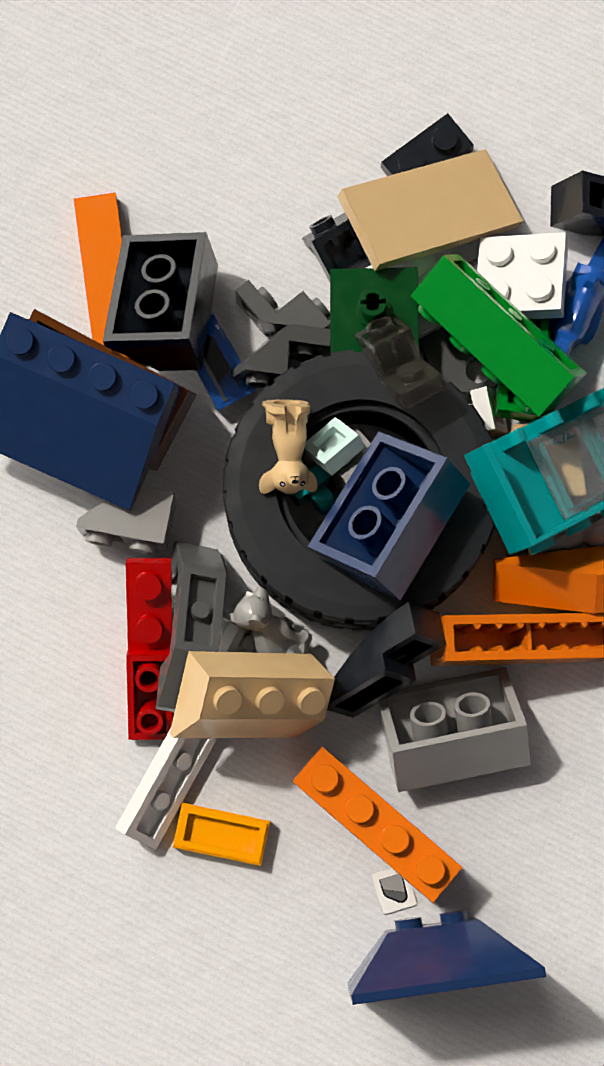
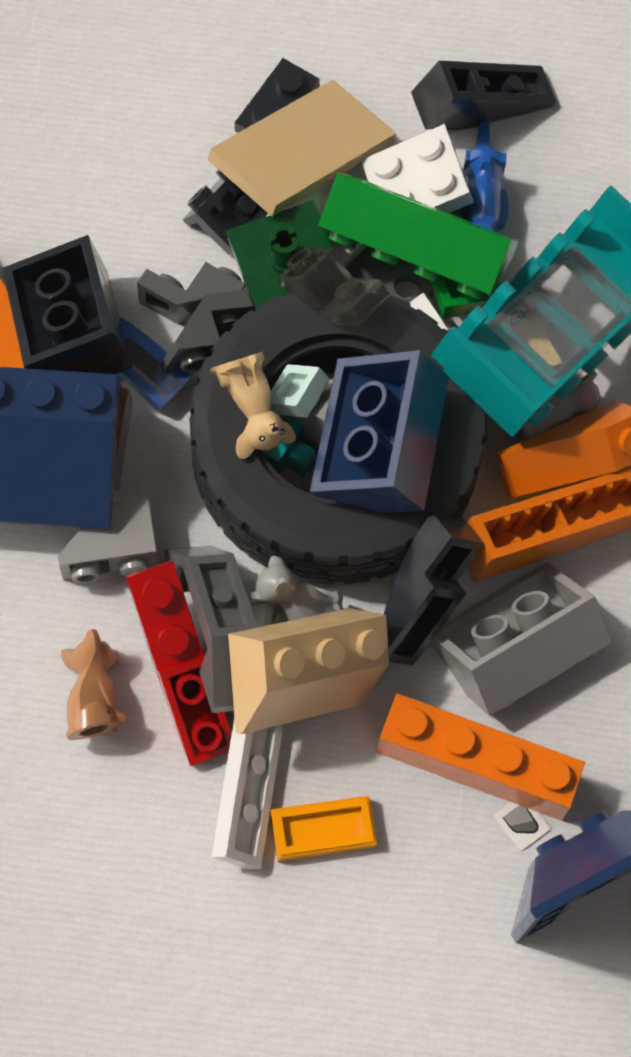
camera: 25 degrees left, 10 degrees down
(65, 652) = (92, 698): none -> medium nougat animal

